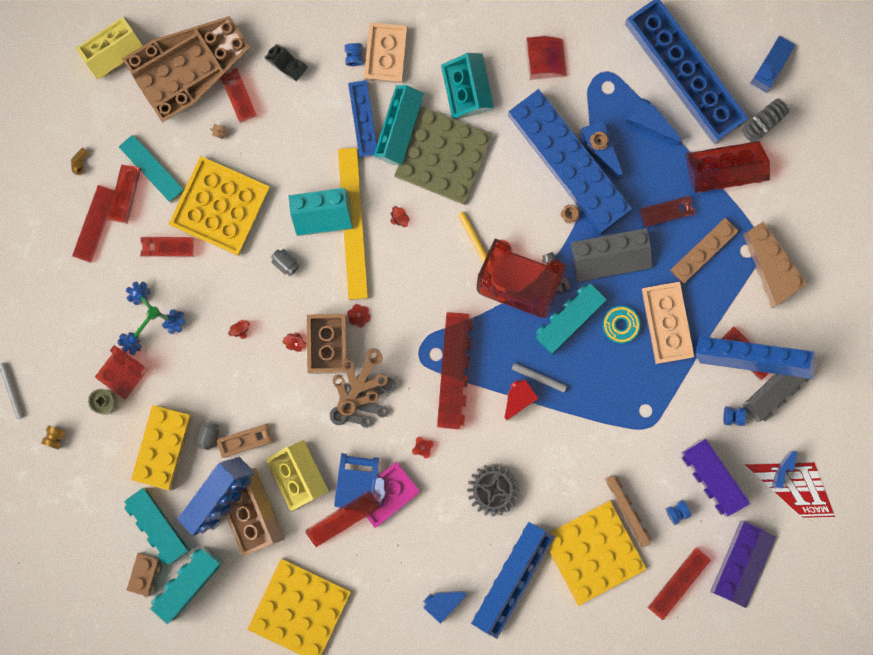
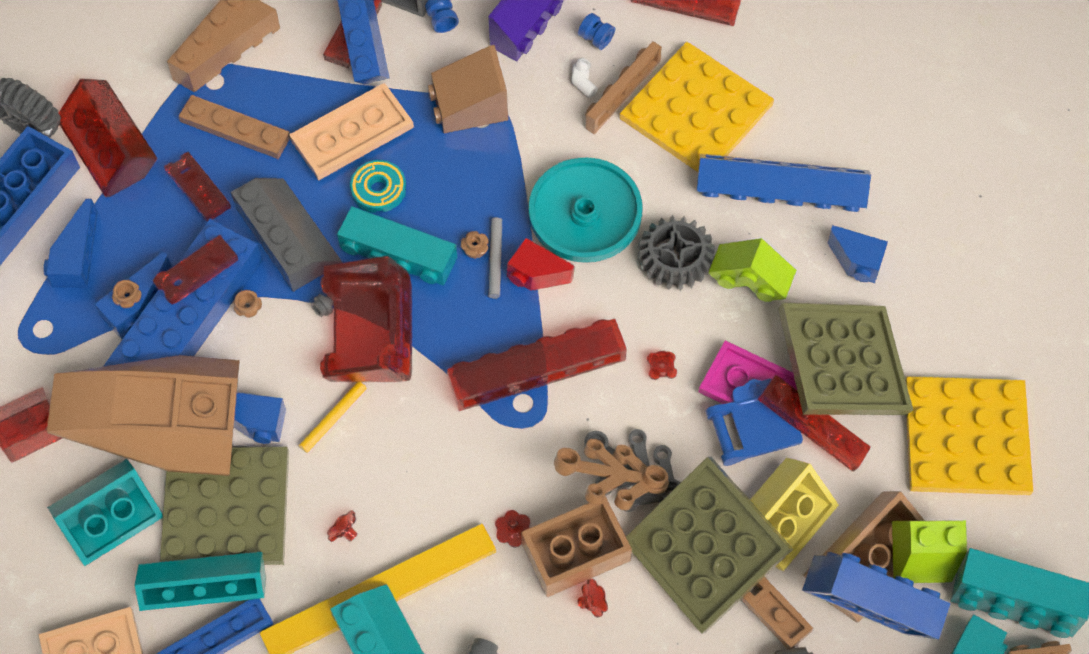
camera: 110 degrees left, 20 degrees down
(236, 544) = (928, 549): none -> lime slope
(292, 417) = (707, 544): none -> olive plate
(373, 556) = (844, 359): none -> olive plate
(457, 529) = (753, 265): none -> lime brick
(492, 189) = (259, 417): none -> blue slope
(512, 130) = (152, 411): none -> medium nougat wedge
(545, 445) = (585, 210): none -> teal dish
(553, 373) = (478, 250): none -> medium nougat plate
(595, 187) = (196, 269): none -> clear red plate
(648, 487) = (580, 77): none -> white arm
(662, 407) = (470, 92): none -> medium nougat slope

